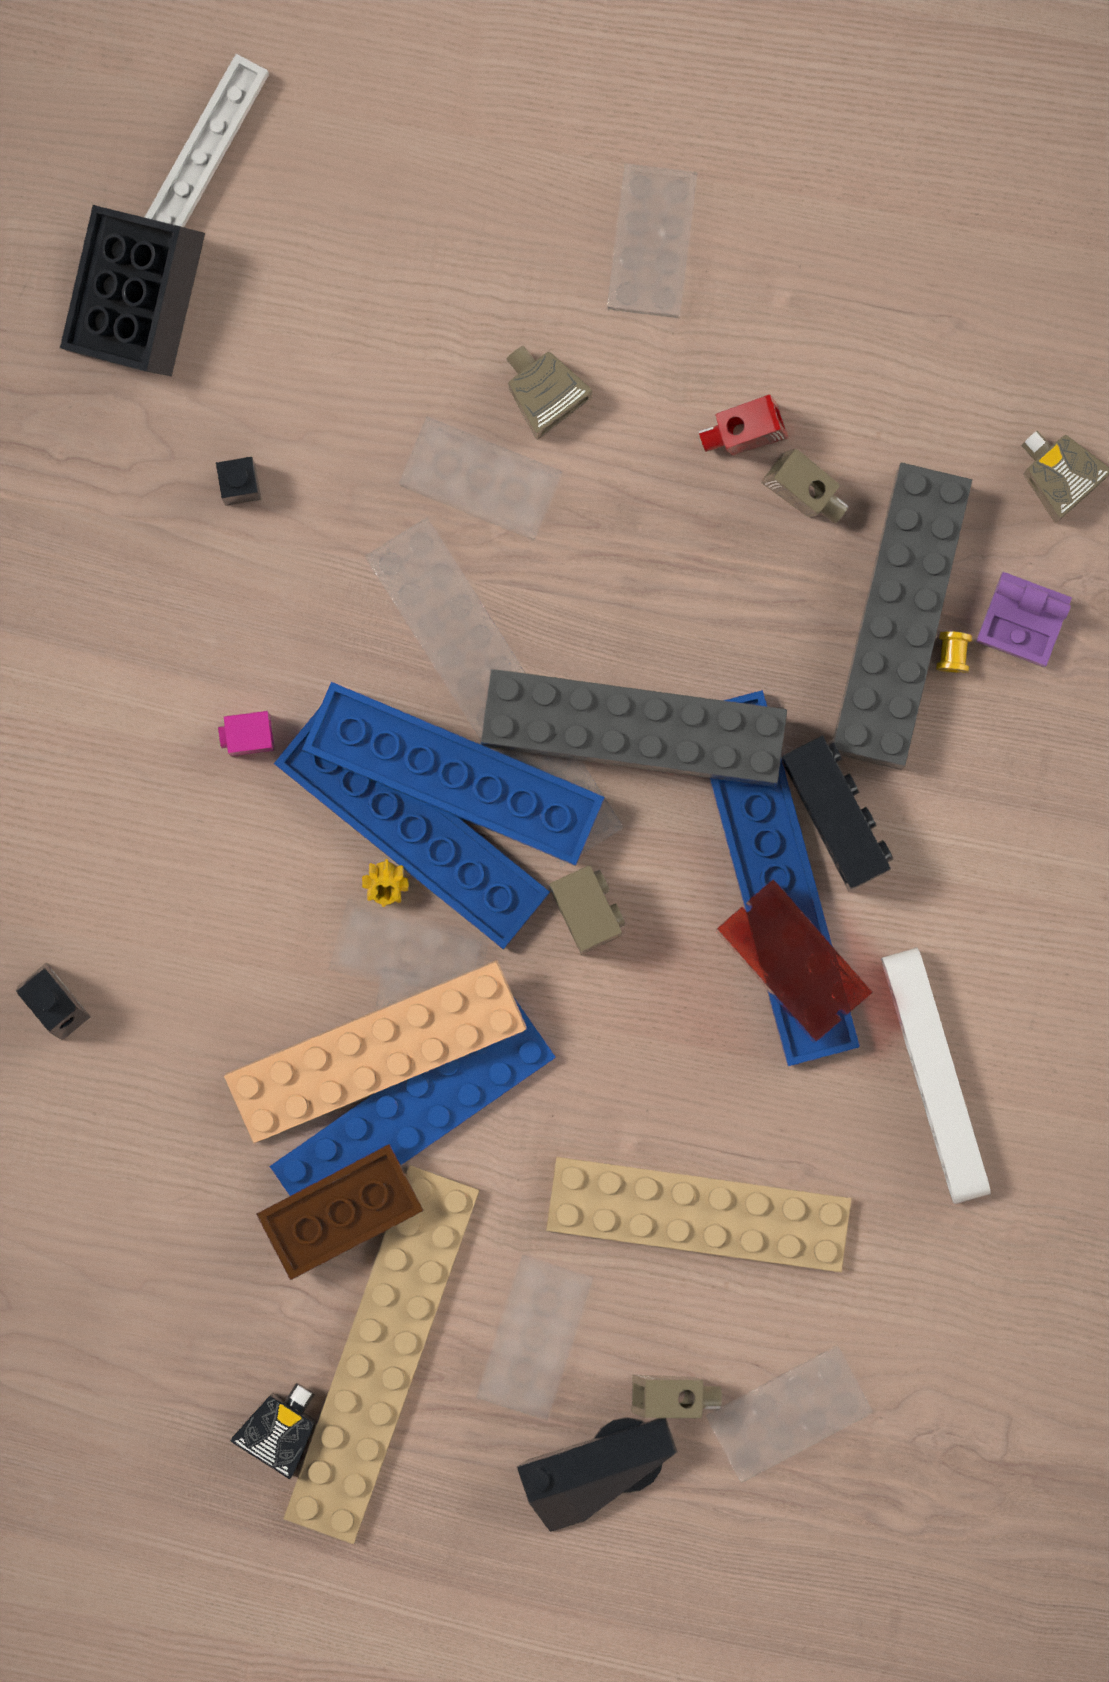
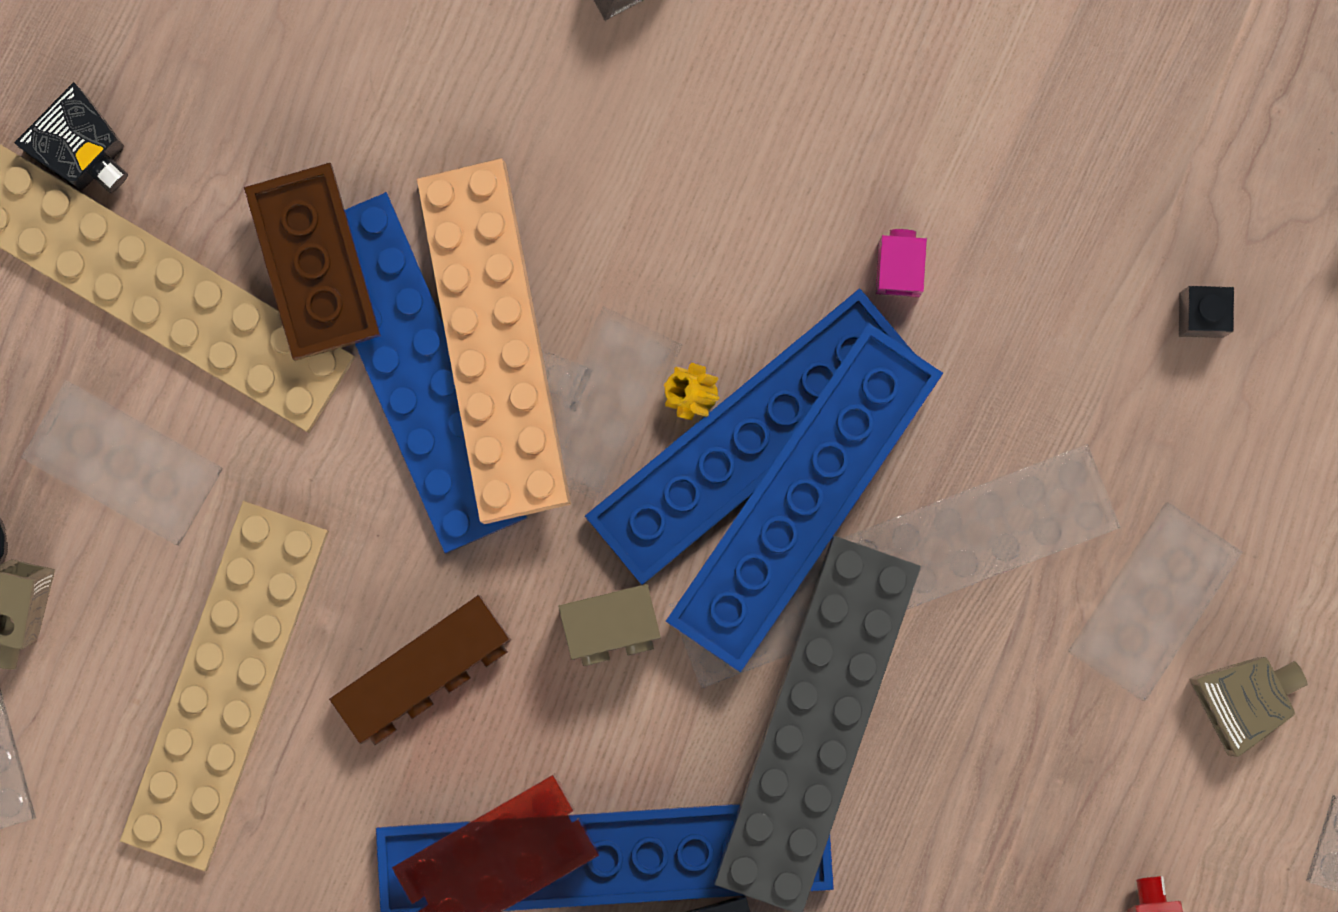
camera: 95 degrees right, 0 degrees up
(654, 1056) = (420, 670): none -> reddish brown brick

